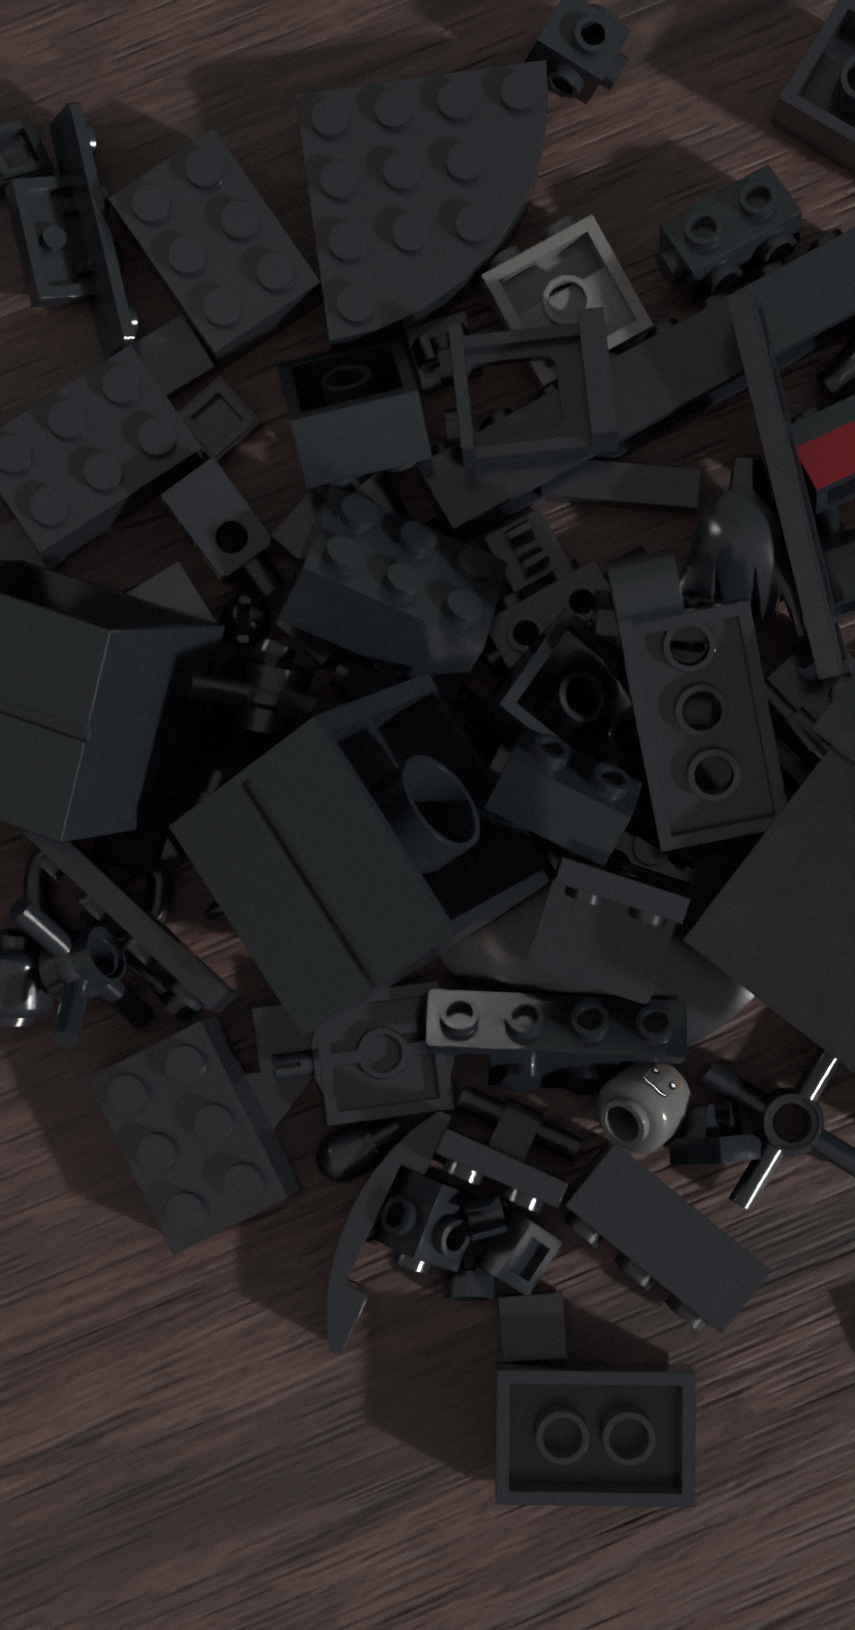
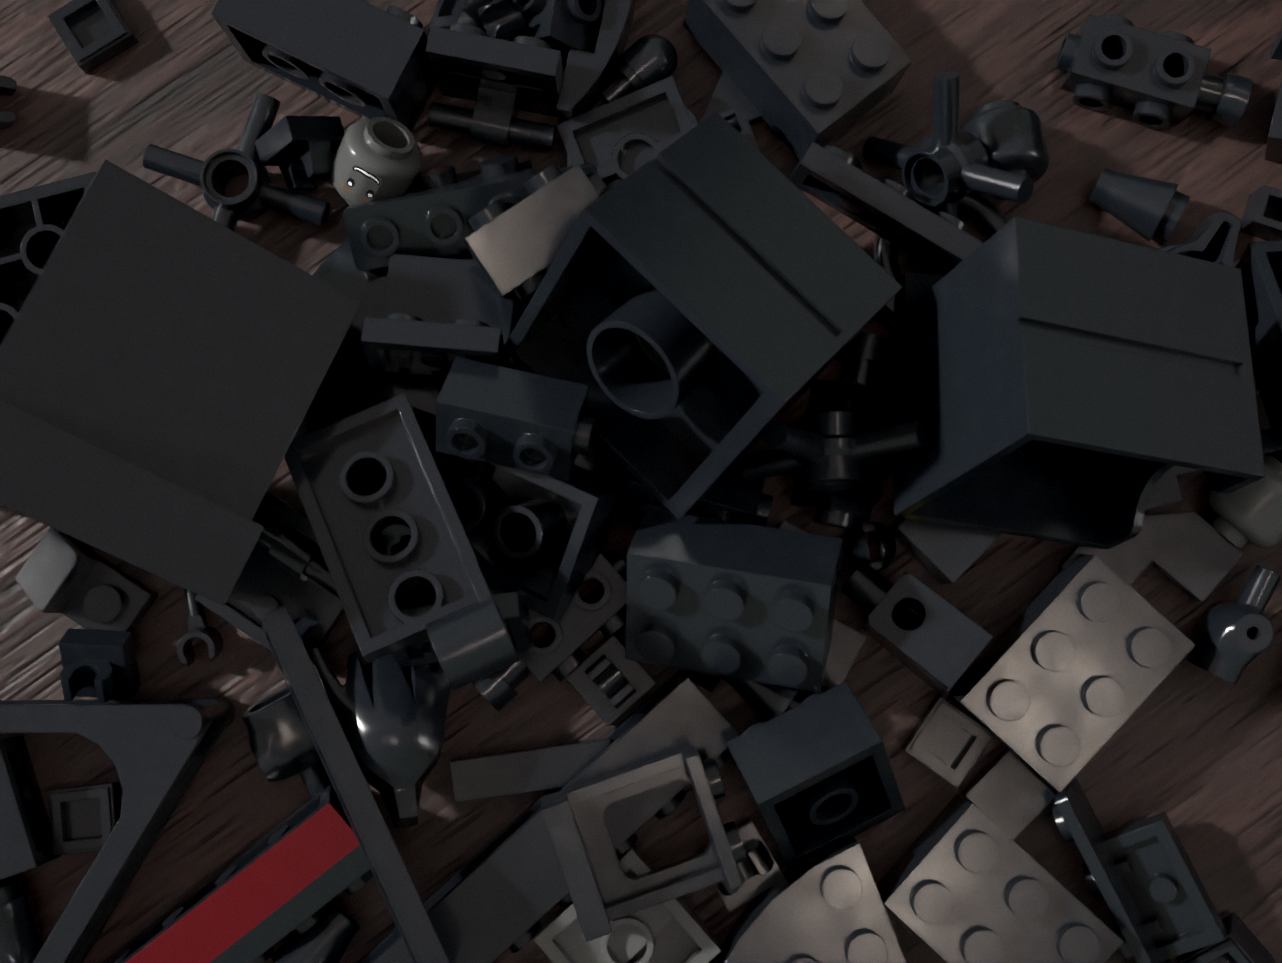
camera: 160 degrees right, 0 degrees up
(496, 980) = (522, 241): none -> black brick

